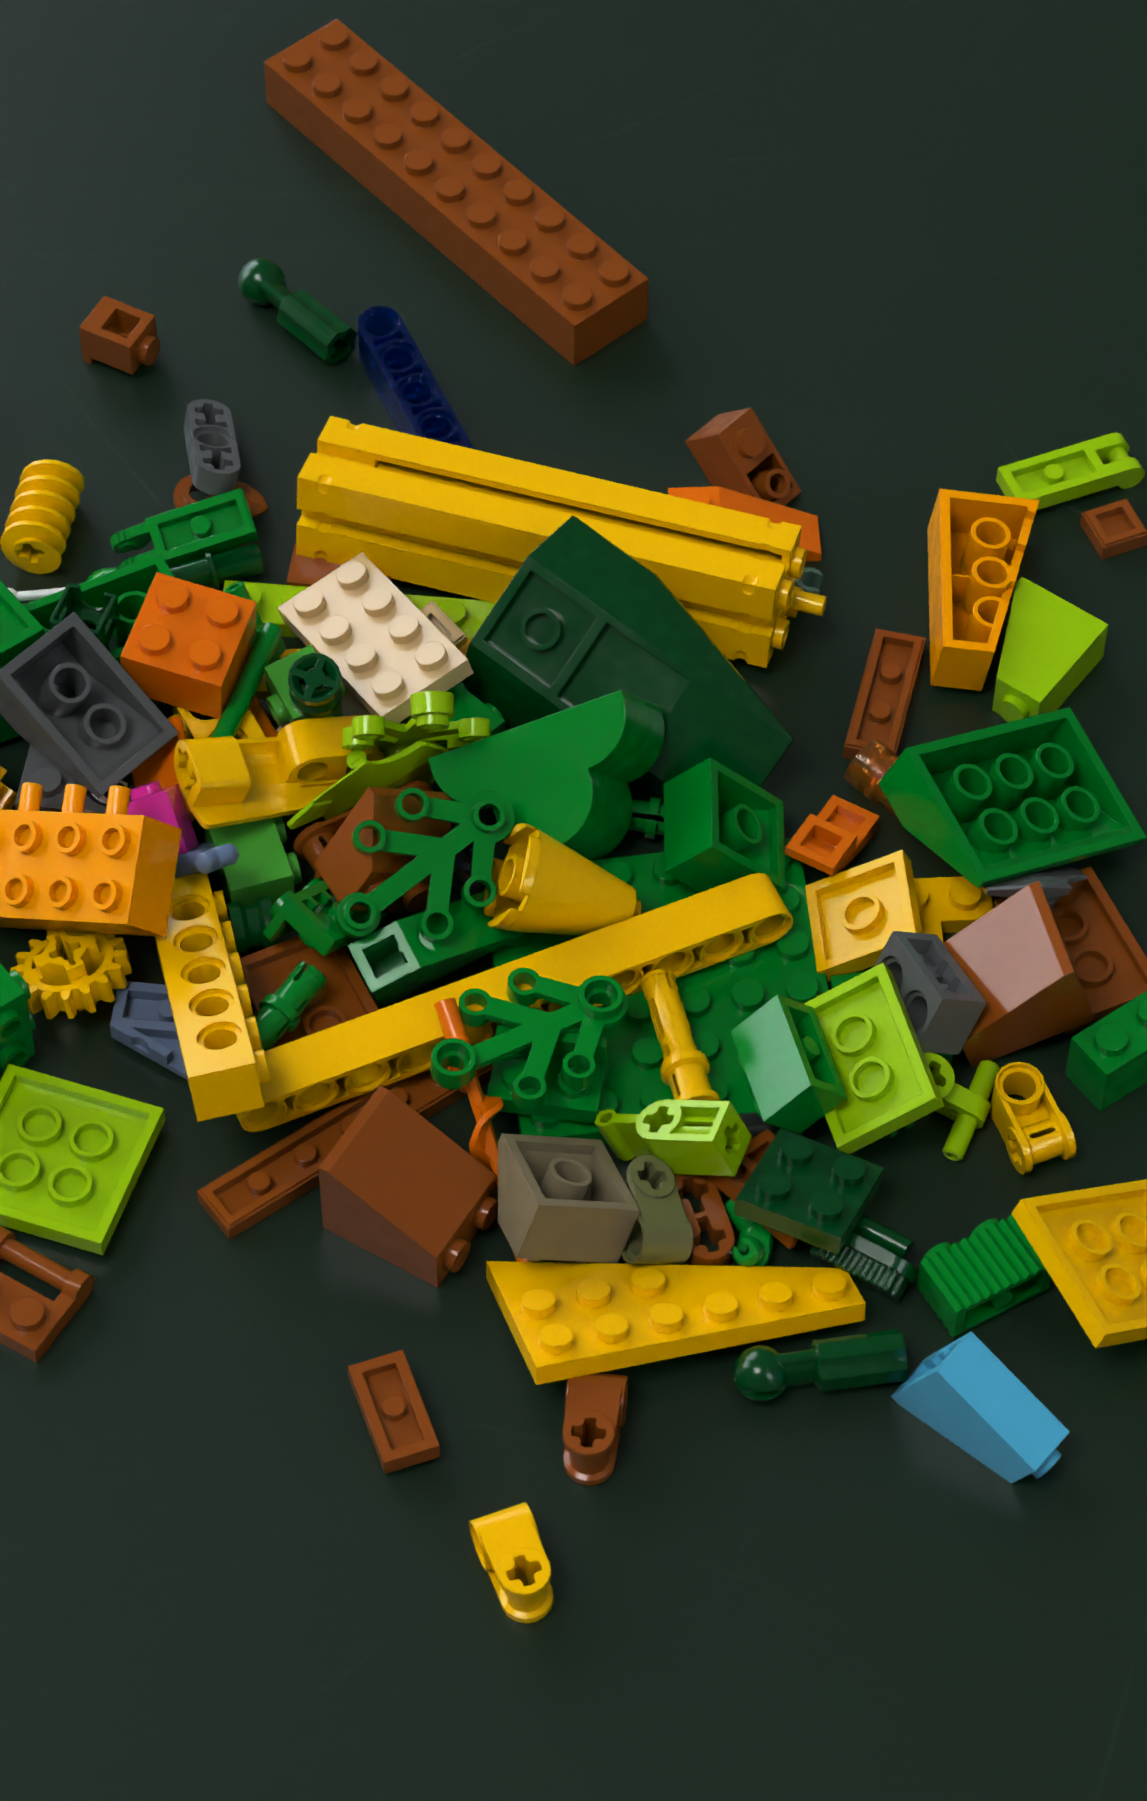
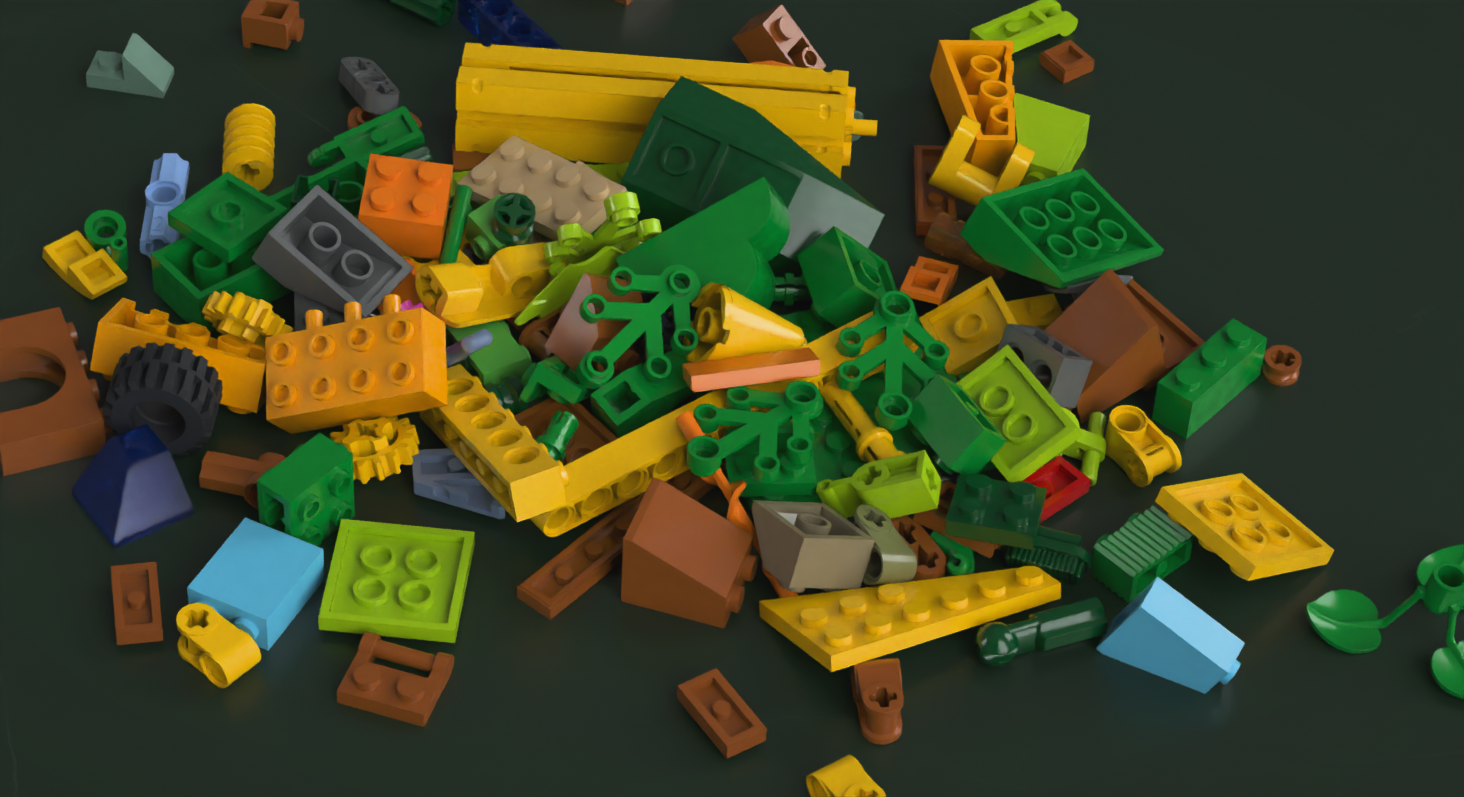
camera: 15 degrees left, 10 degrees down
(548, 947) = (751, 369): none -> orange tile
(736, 950) = (896, 316): none -> green plant
(908, 1159) = (1062, 482): none -> red plate
(928, 701) = (968, 181): none -> yellow connector

